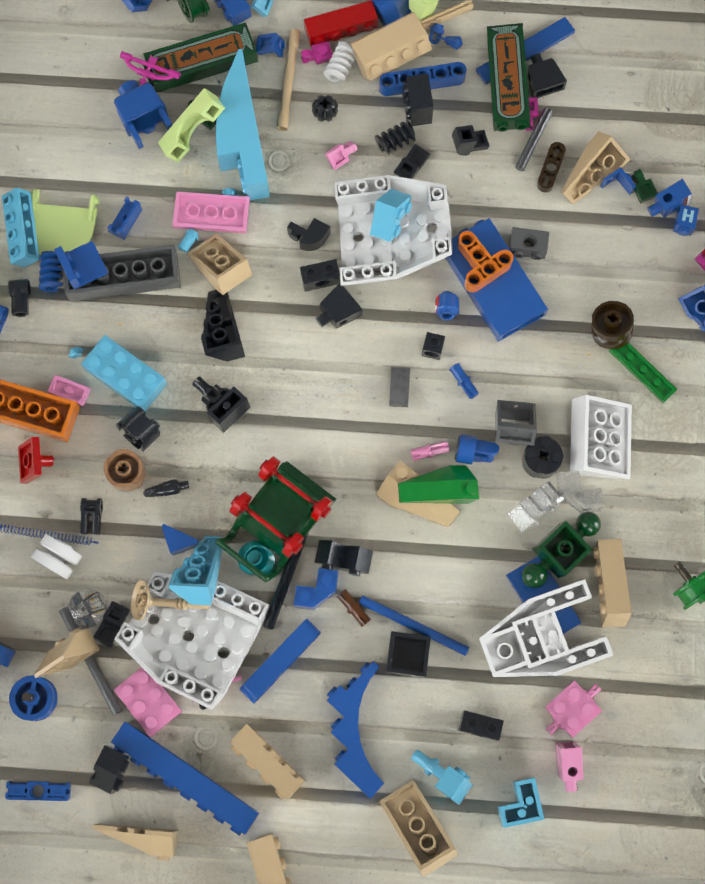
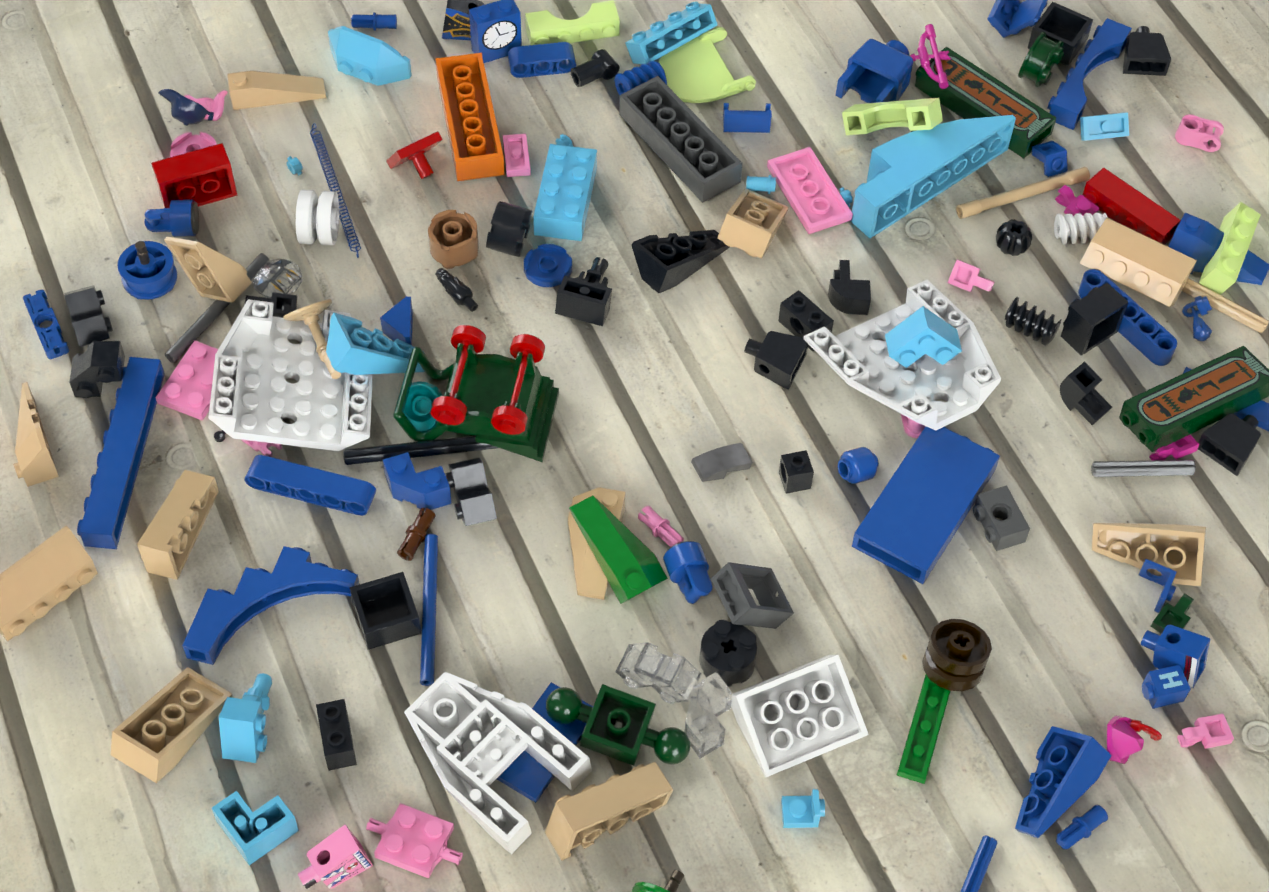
camera: 60 degrees right, 20 degrees down
(52, 758) = (87, 315): none -> black brick
(82, 264) = (658, 89): blue bracket -> none
(86, 511) = (383, 235): black piece -> none
(177, 417) = (547, 265): none -> blue tile
(412, 163) = (1012, 356): black slope -> none
(464, 381) = (774, 526): blue axle -> none
(485, 262) = (936, 469): orange beam -> none
(552, 174) = (1111, 510): dark brown beam -> none
(662, 469) = (802, 810): none -> medium azure bracket

